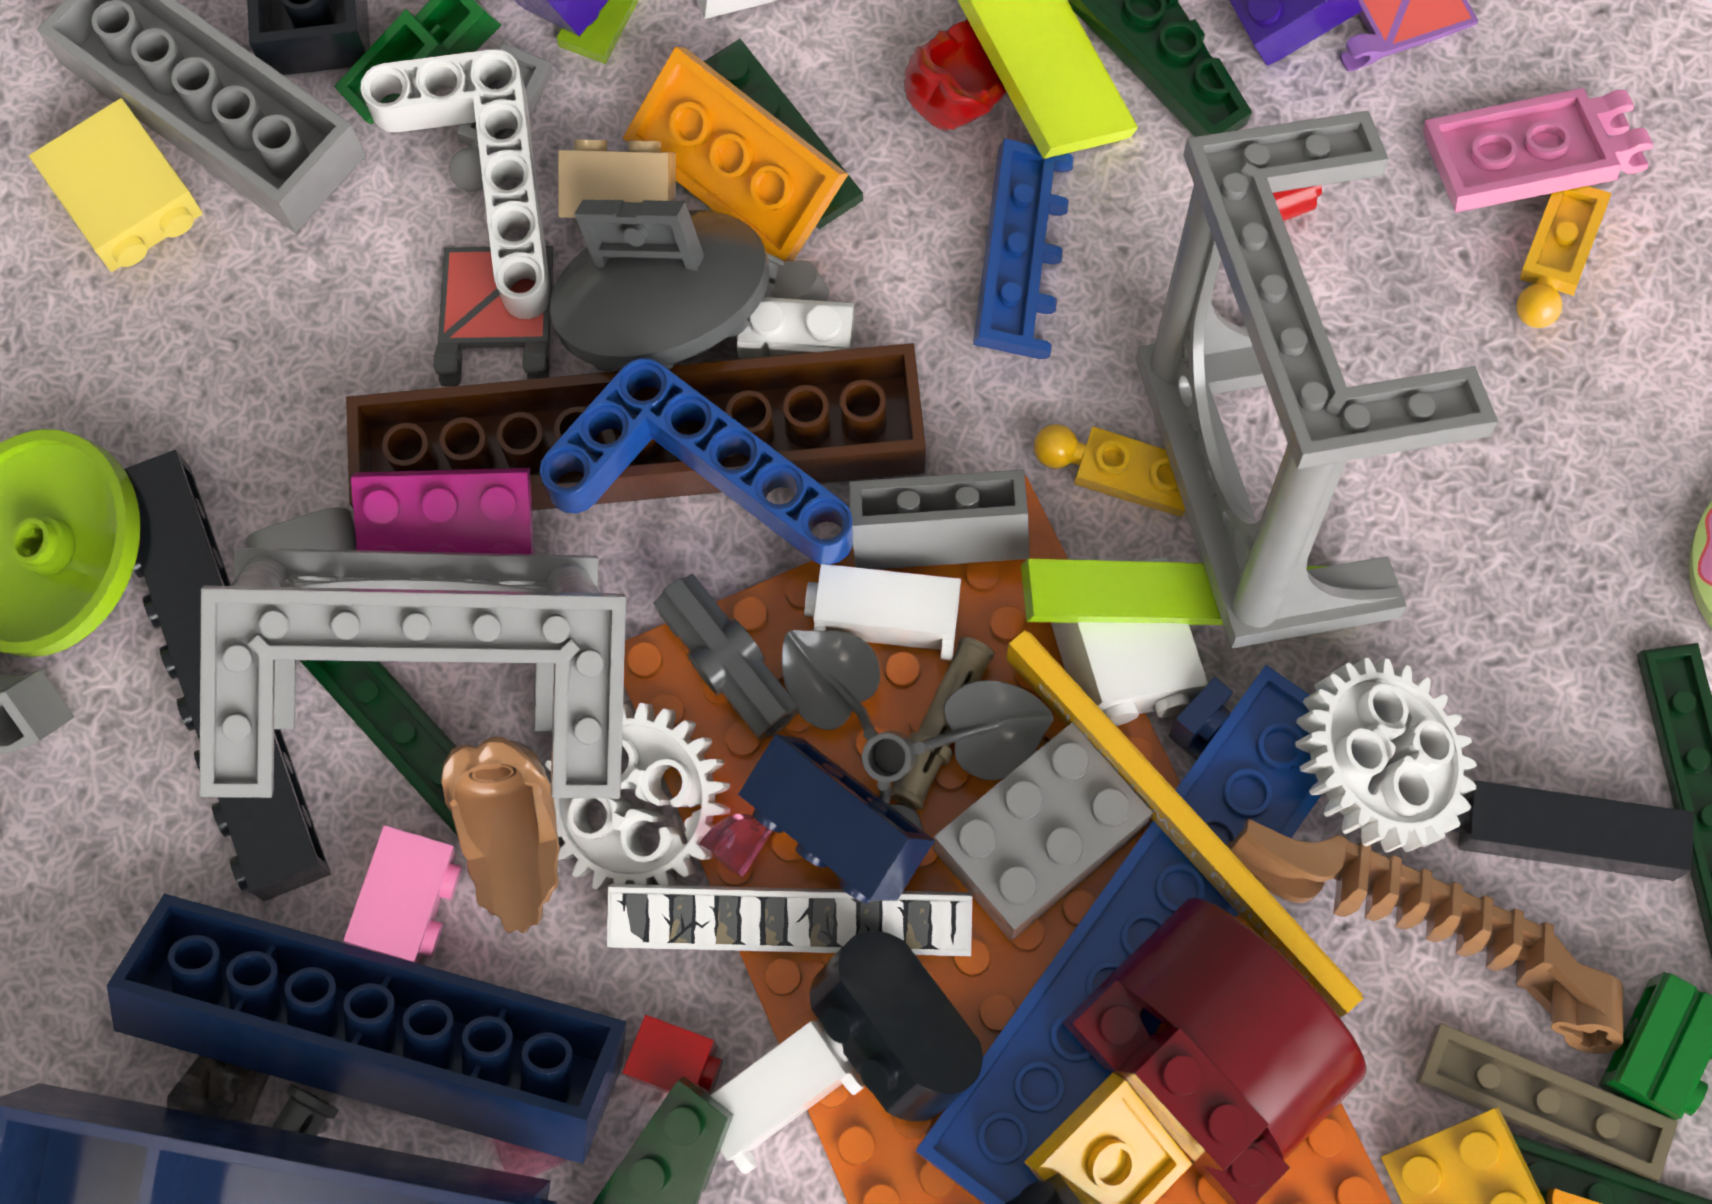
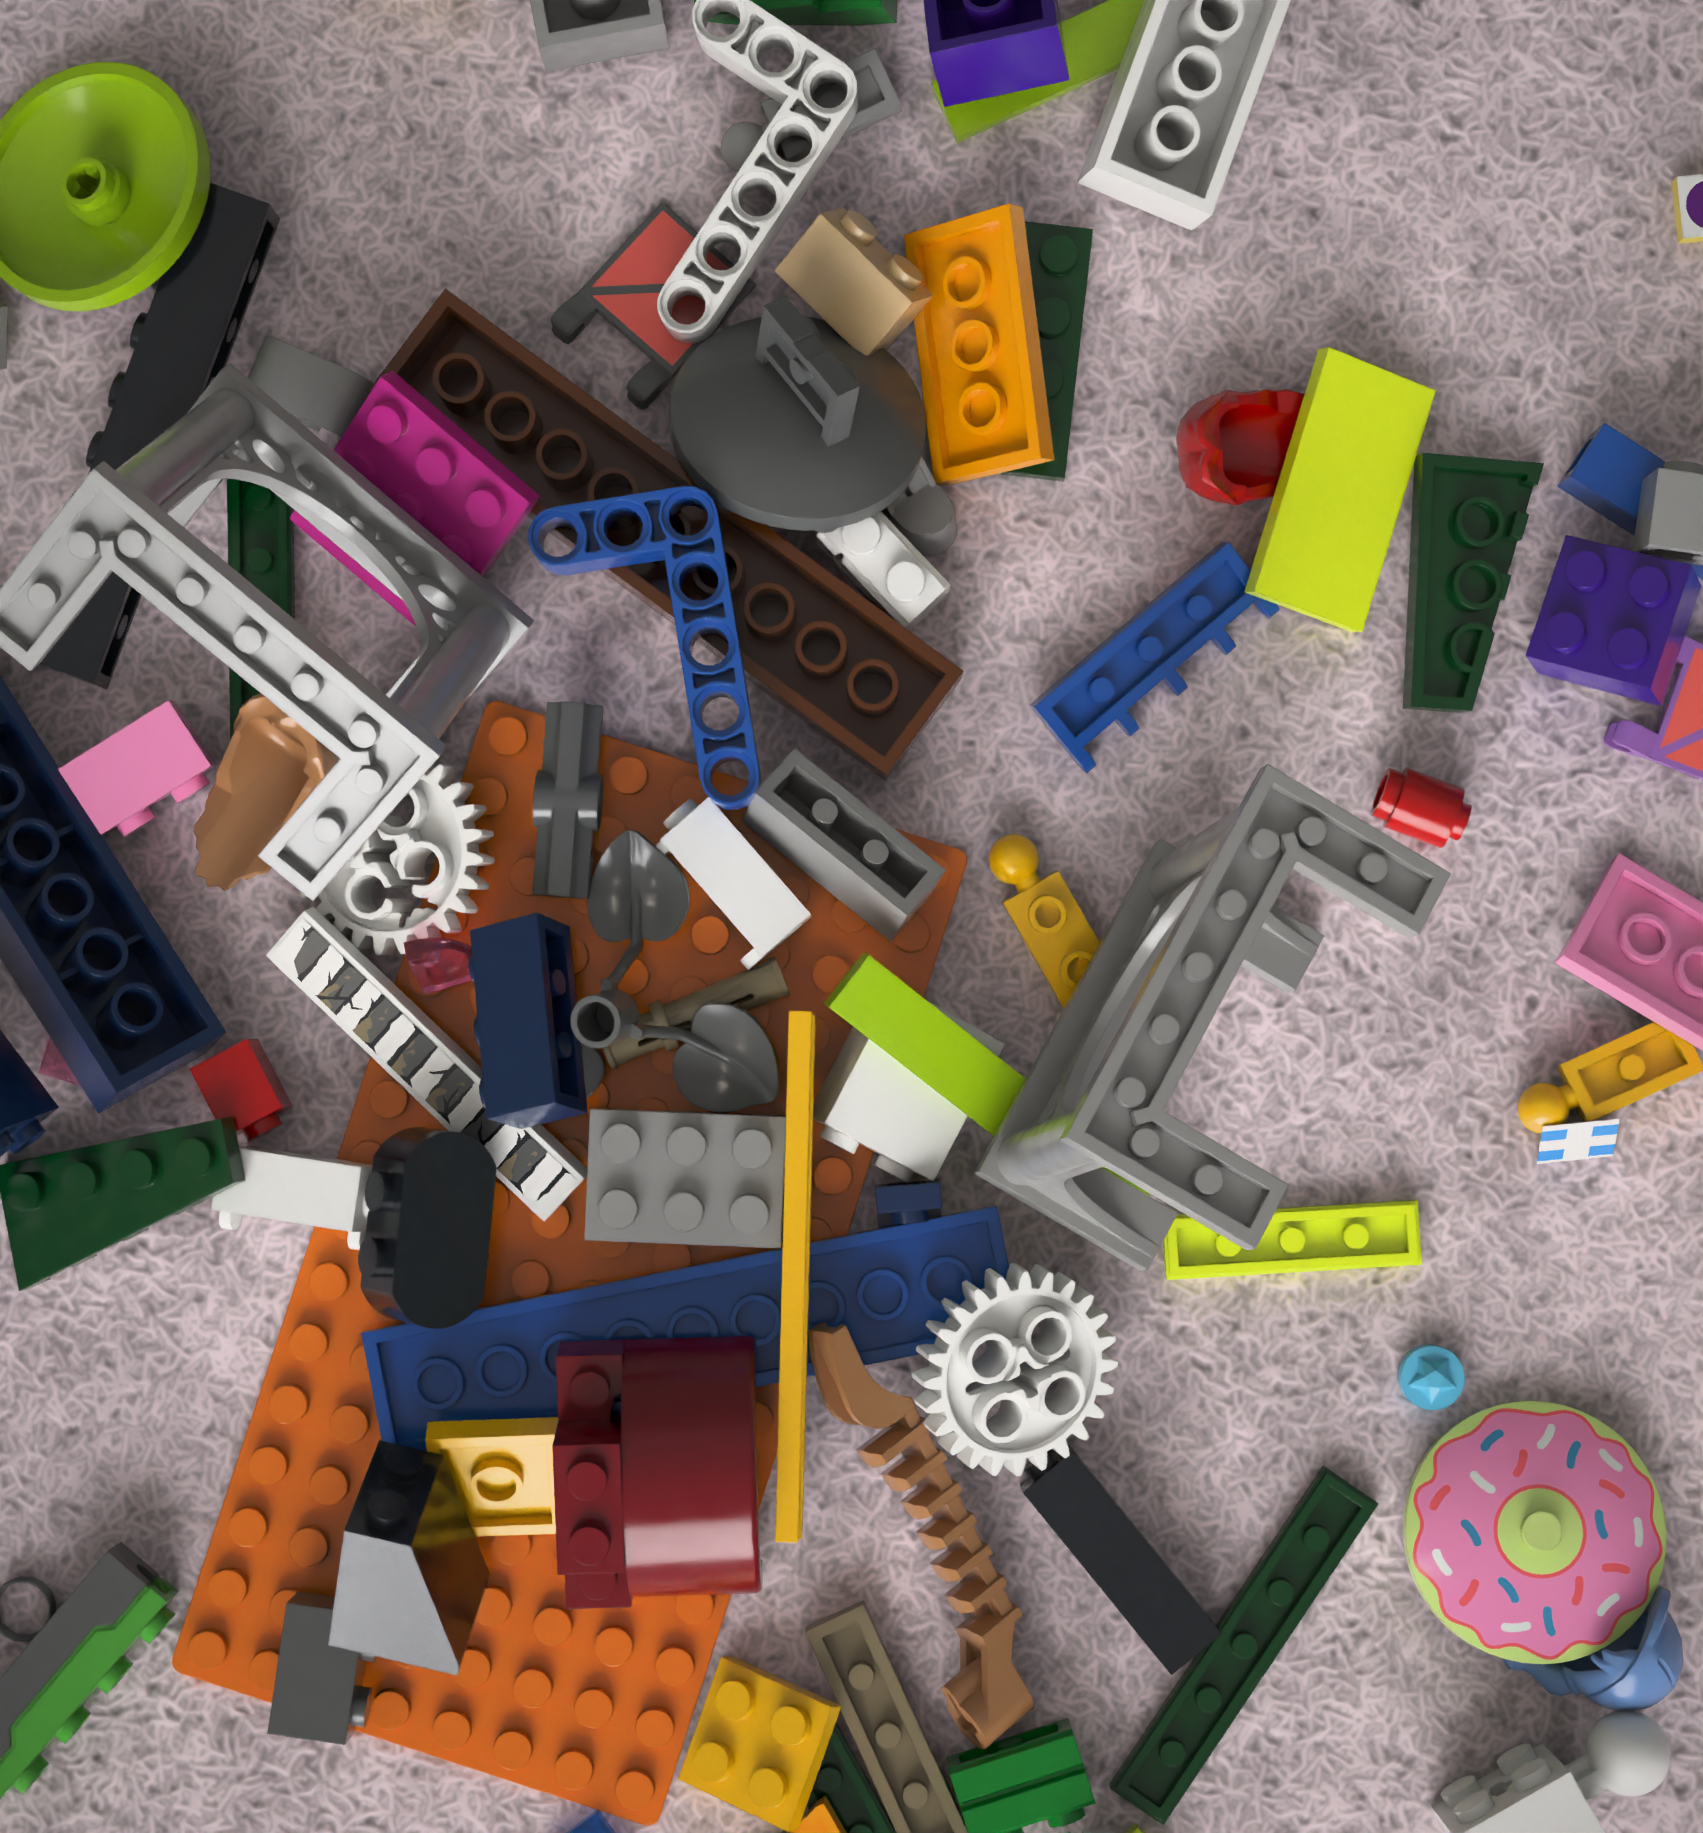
camera: 40 degrees right, 15 degrees up
(1473, 524) = (1300, 1242): none -> neon yellow tile
(1580, 306) = (1578, 1140): none -> white sticker
(1644, 534) = (1430, 1377): none -> medium azure tile

